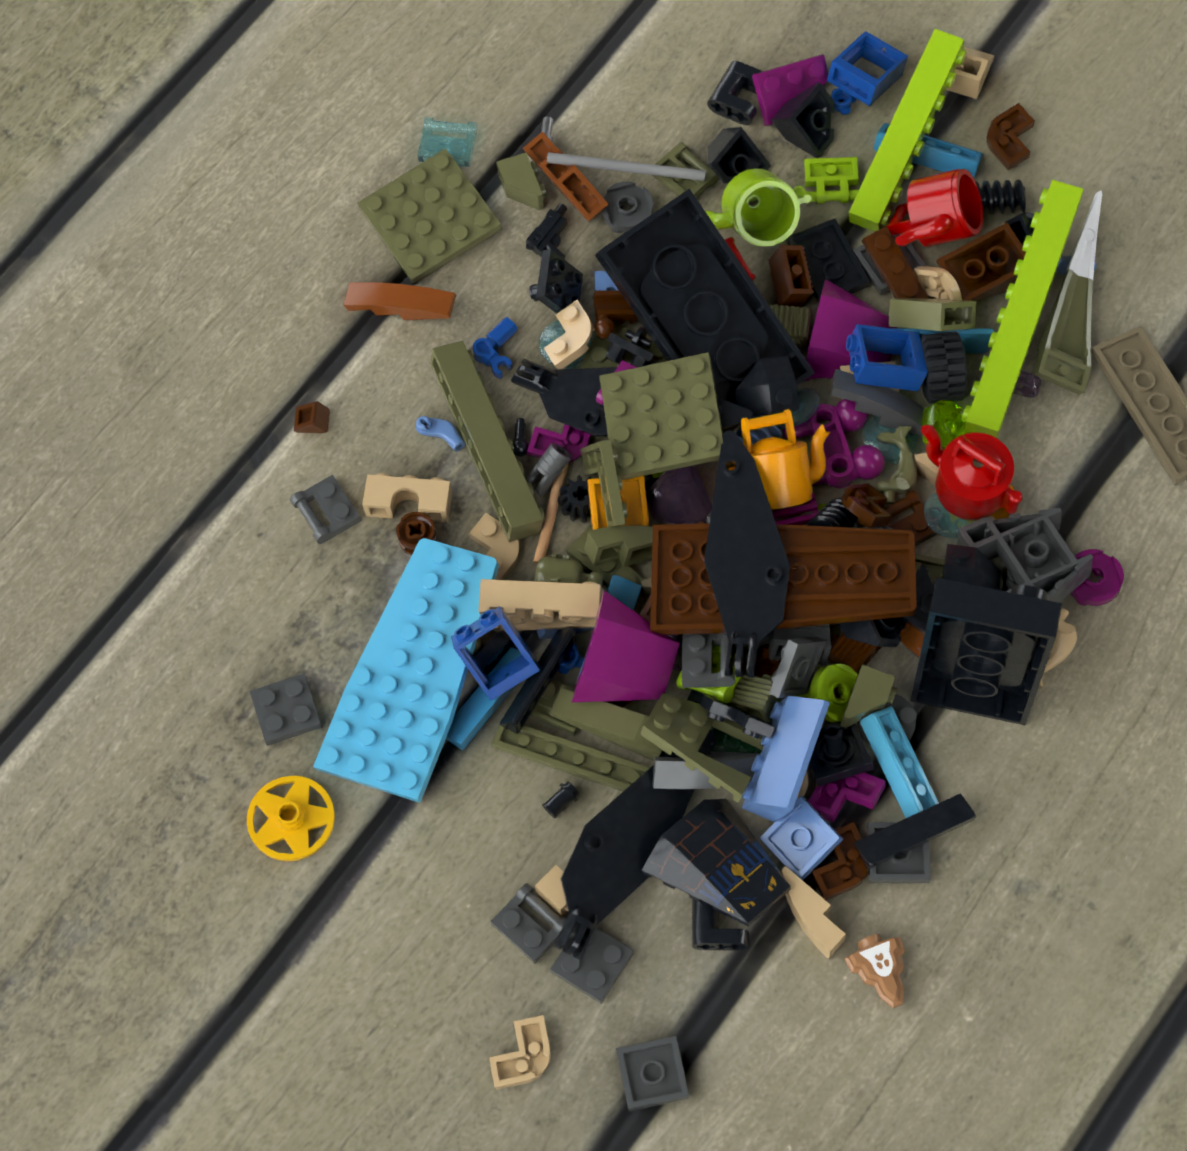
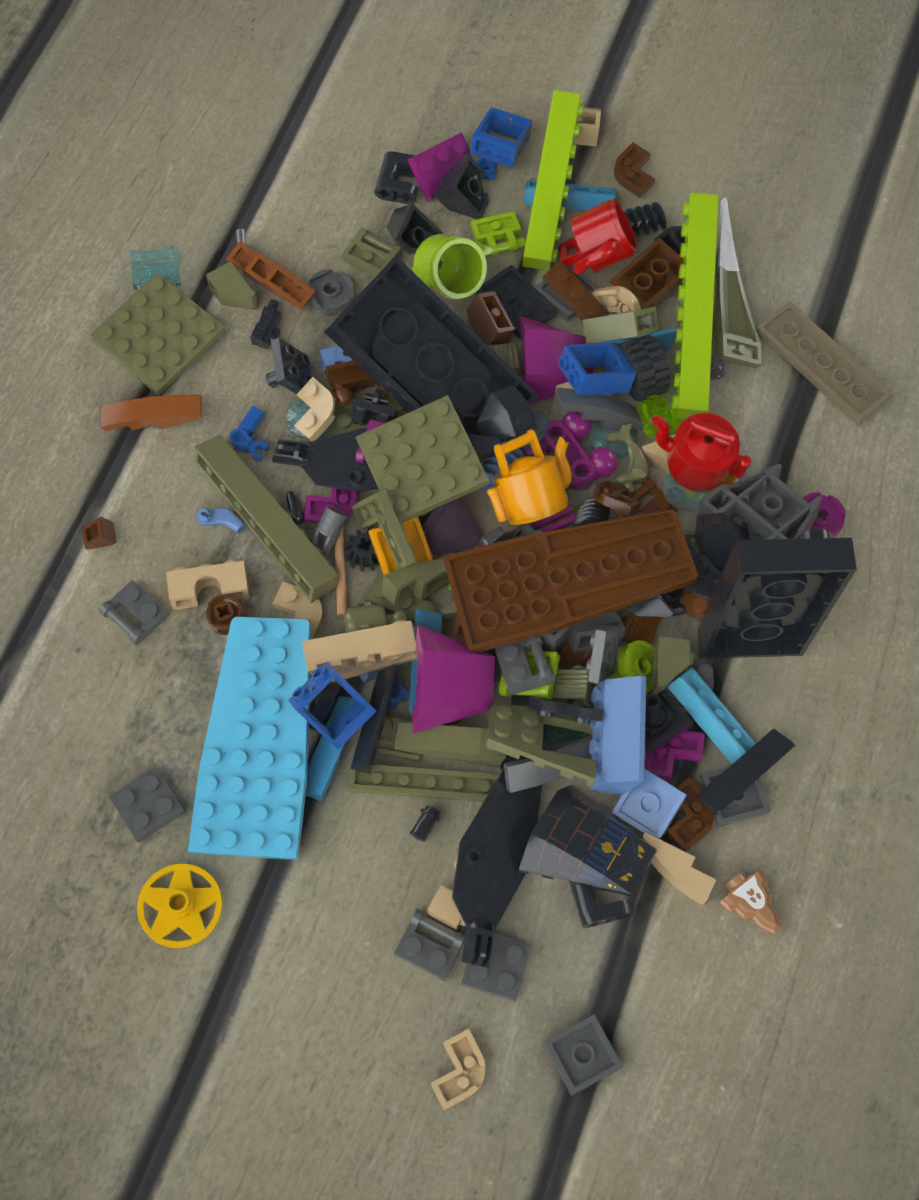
camera: 25 degrees left, 0 degrees up
(625, 166) = (321, 256): light grey piece -> none
(744, 557) = (534, 565): black wing -> none

